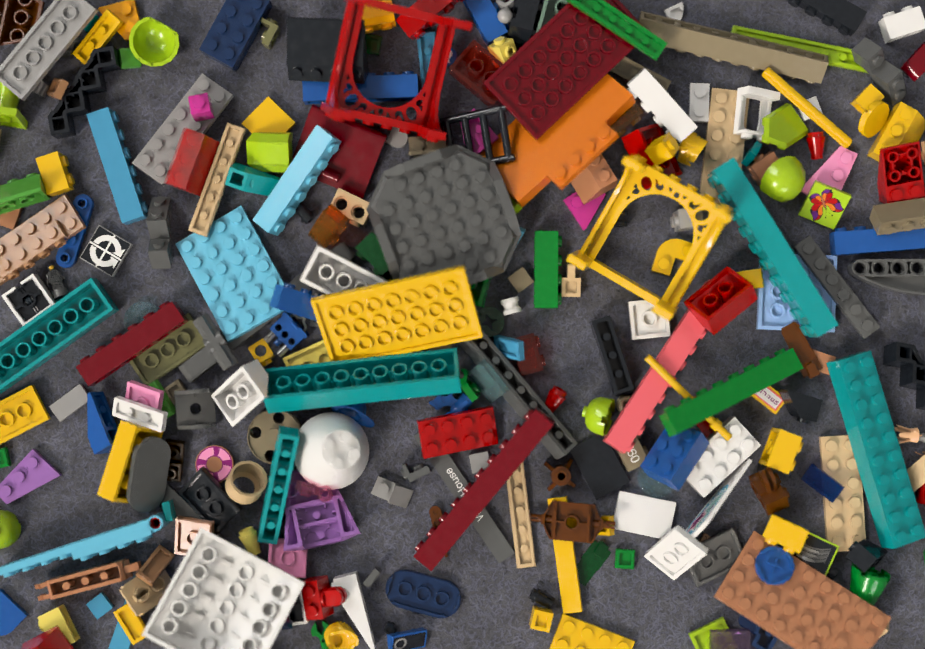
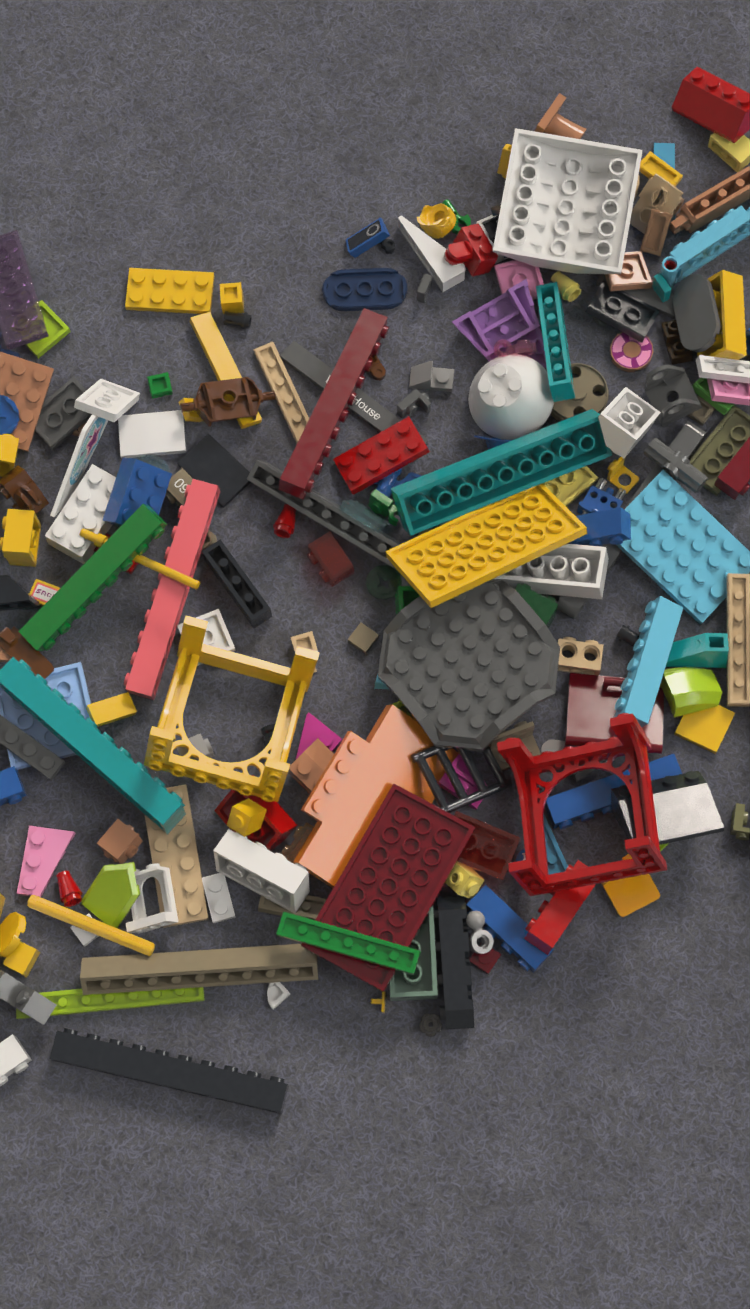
camera: 160 degrees right, 15 degrees down
(100, 605) = (699, 181): dark azure tile -> none
(249, 470) = (579, 348): tan piece -> none
(328, 226) = (595, 625): clear orange brick -> none
(373, 44) = (616, 848): dark green tile -> none
(478, 461) = (348, 436): light grey tile -> none
(510, 305) = (365, 605): white wheel -> none
(510, 347) = (353, 556): dark azure tile -> none
(546, 269) = (337, 654): green brick -> none
(560, 469) = (255, 446): reddish brown brick -> none
(592, 561) = (194, 373): dark green piece -> none
(599, 415) = (231, 517): lime cylinder -> none
(667, 253) = (206, 714): yellow plate -> none
(691, 148) = (210, 835): yellow hair -> none
(721, 300) = (132, 672): red slope -> none
(752, 153) = (141, 852): teal tile -> none
(784, 179) = (95, 829): lime cylinder -> none
(824, 204) = (40, 821): lime tile -> none

